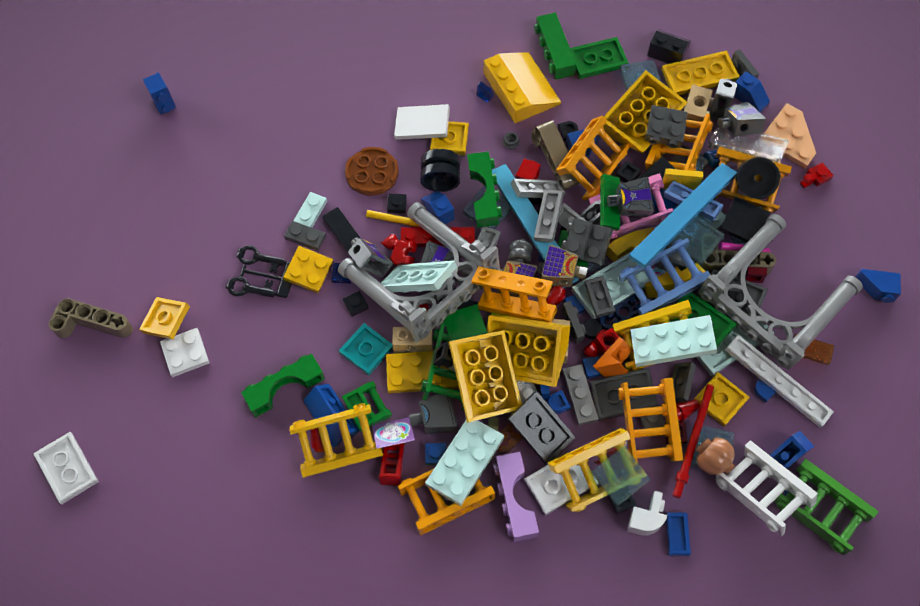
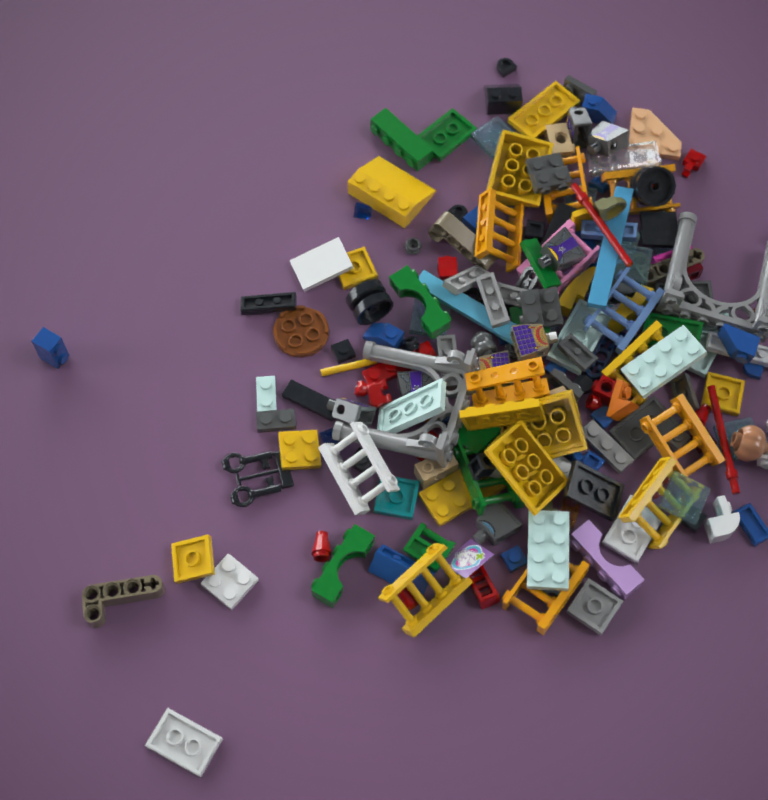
camera: 30 degrees left, 0 degrees up
(275, 360) = (321, 549): none -> red cone
(329, 302) = (341, 473): none -> white fence
(358, 135) = (268, 303): none -> black tile
(456, 222) = (410, 343): none -> black bush
(481, 533) = (594, 606): none -> light grey plate
(489, 318) = (502, 415): none -> yellow plate
(683, 161) = (583, 199): none -> red bar
(689, 21) = (506, 66): none -> black tile
(702, 178) = (610, 207): none -> olive rock
(758, 358) = (738, 343): none -> blue slope

